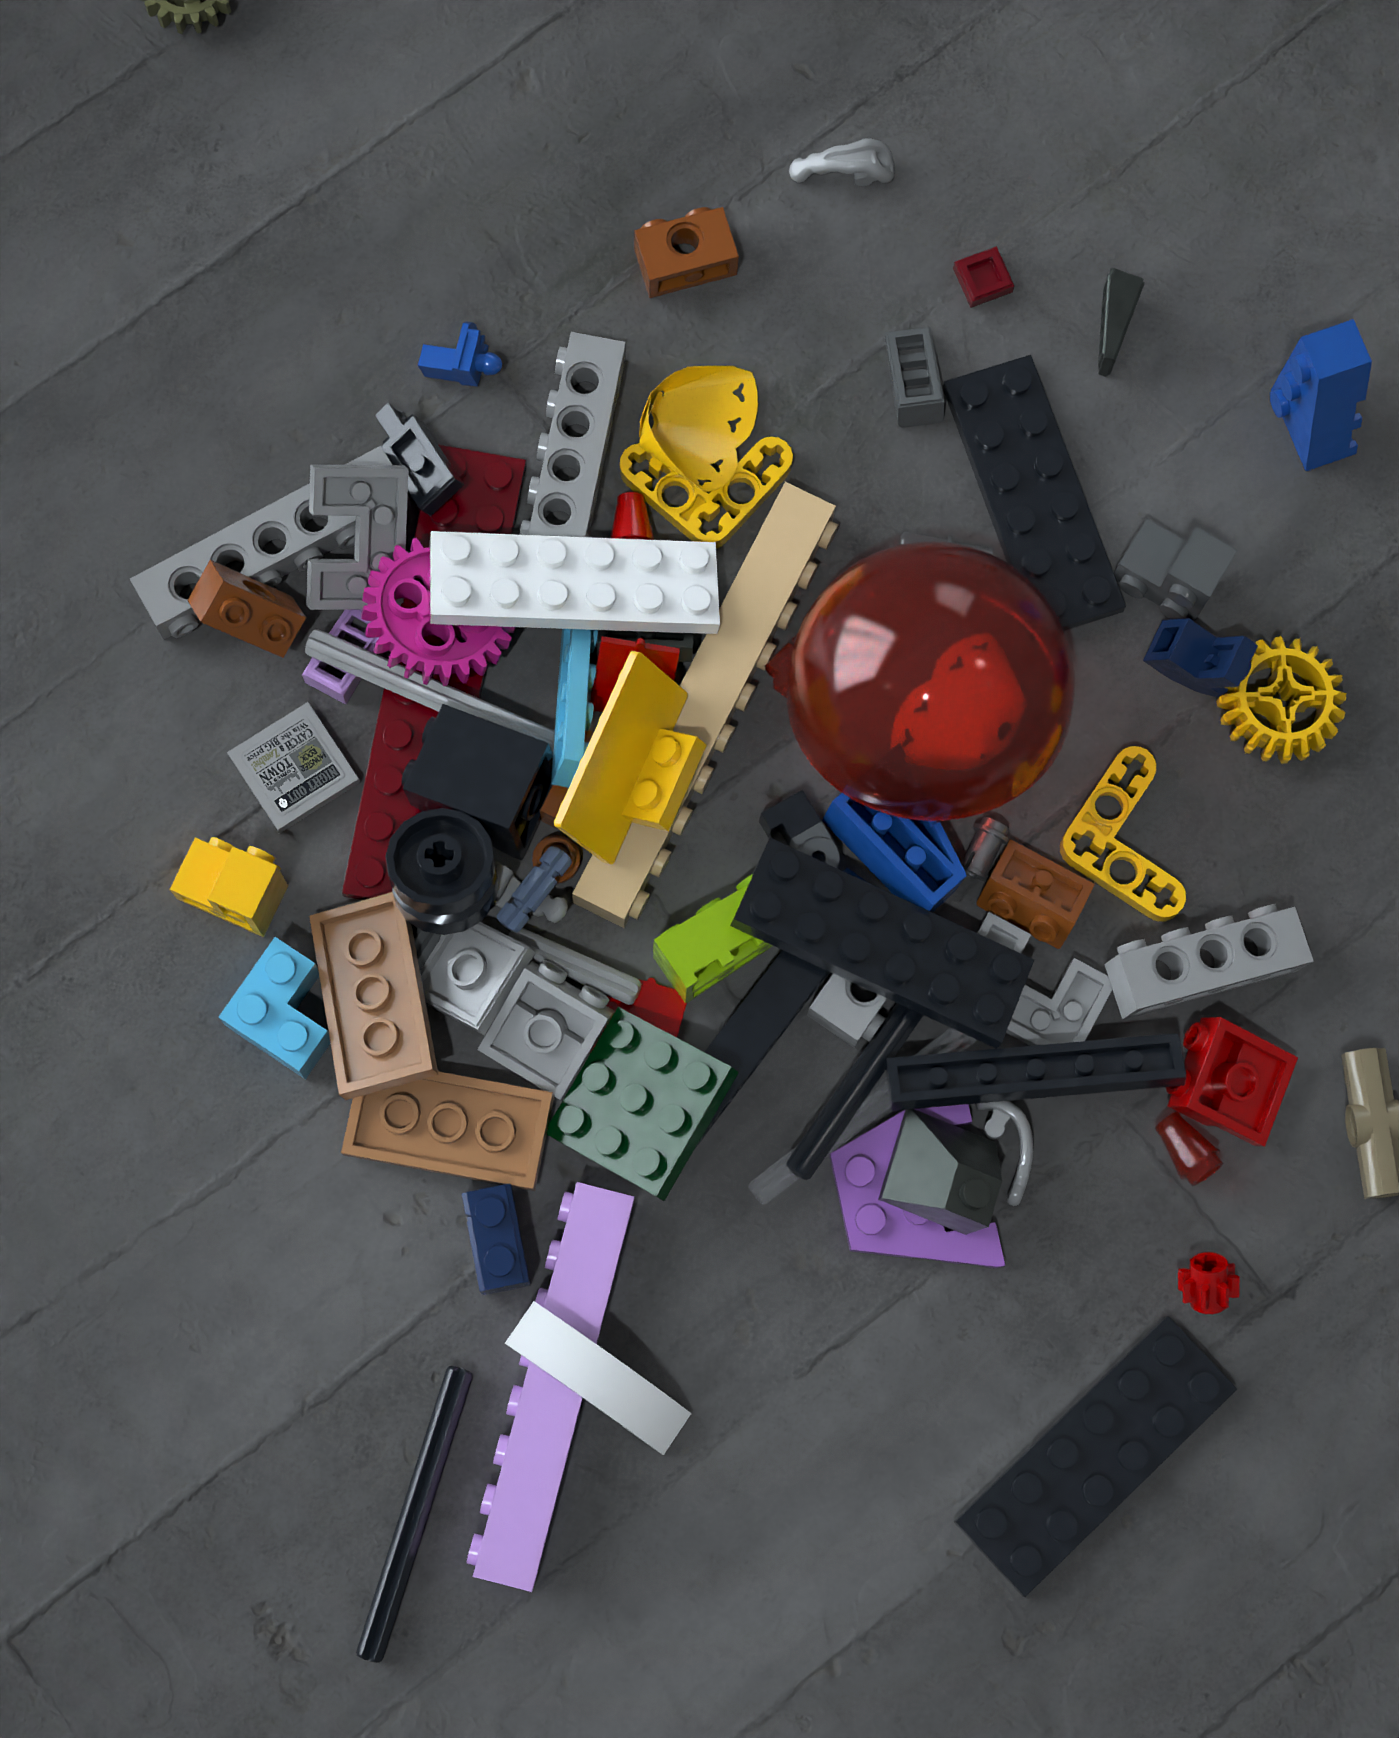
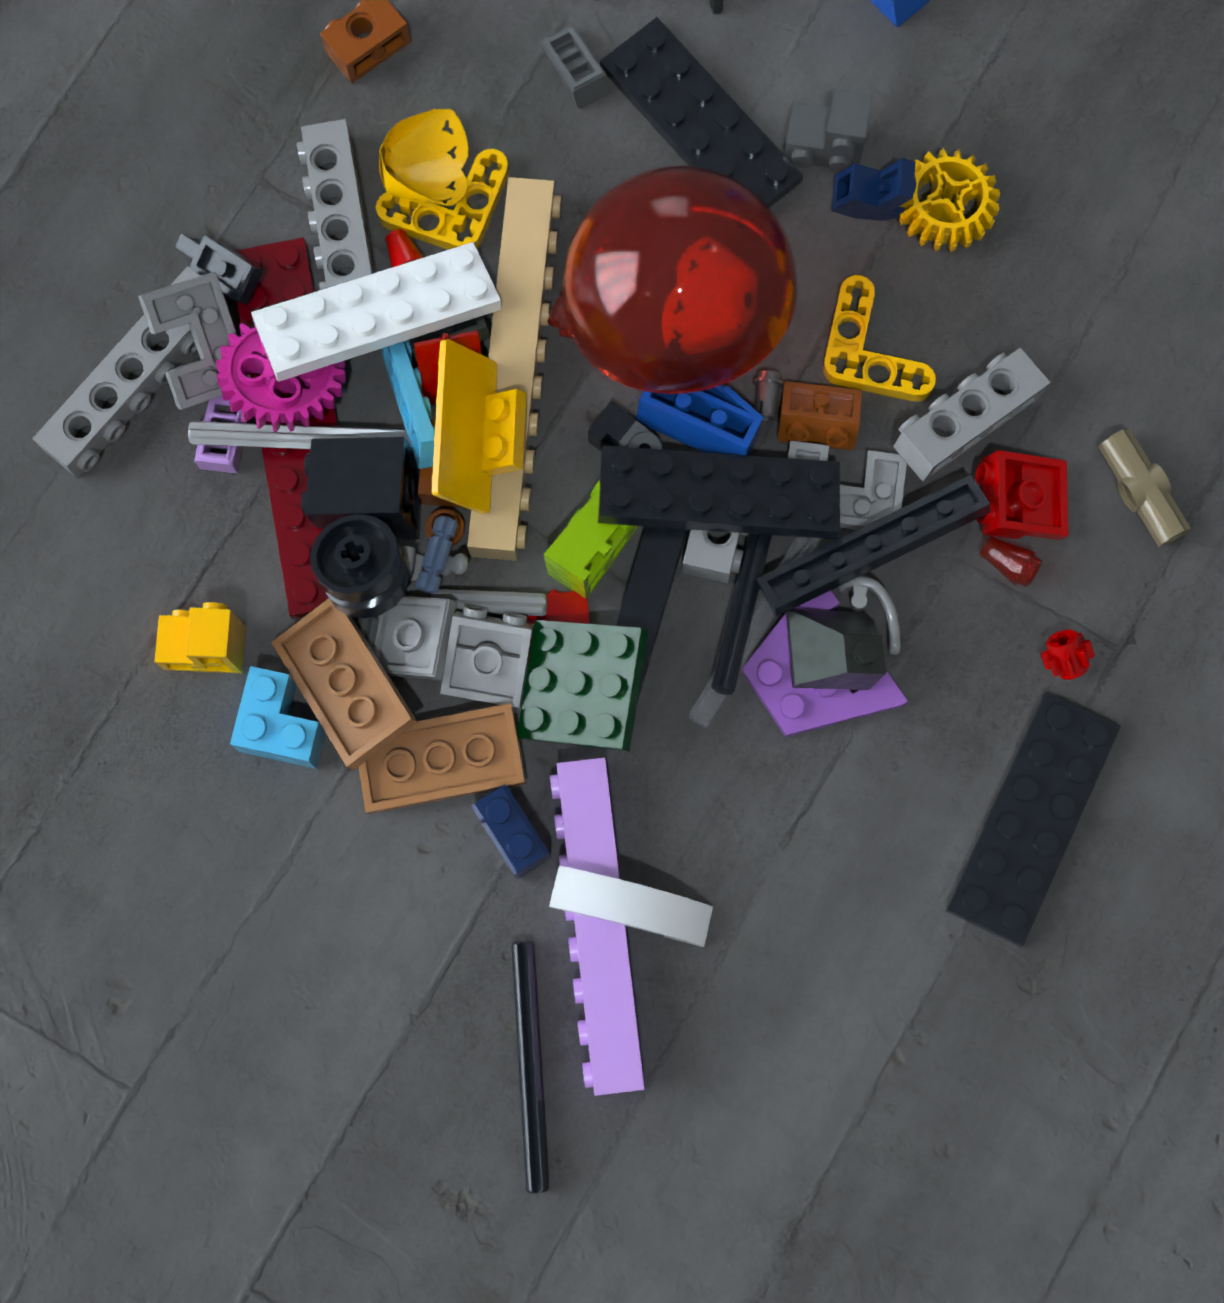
camera: 10 degrees left, 0 degrees up
(246, 609) = (131, 426): dark orange brick -> none
(293, 767) = (215, 535): light grey tile -> none
(462, 363) = (227, 183): blue piece -> none

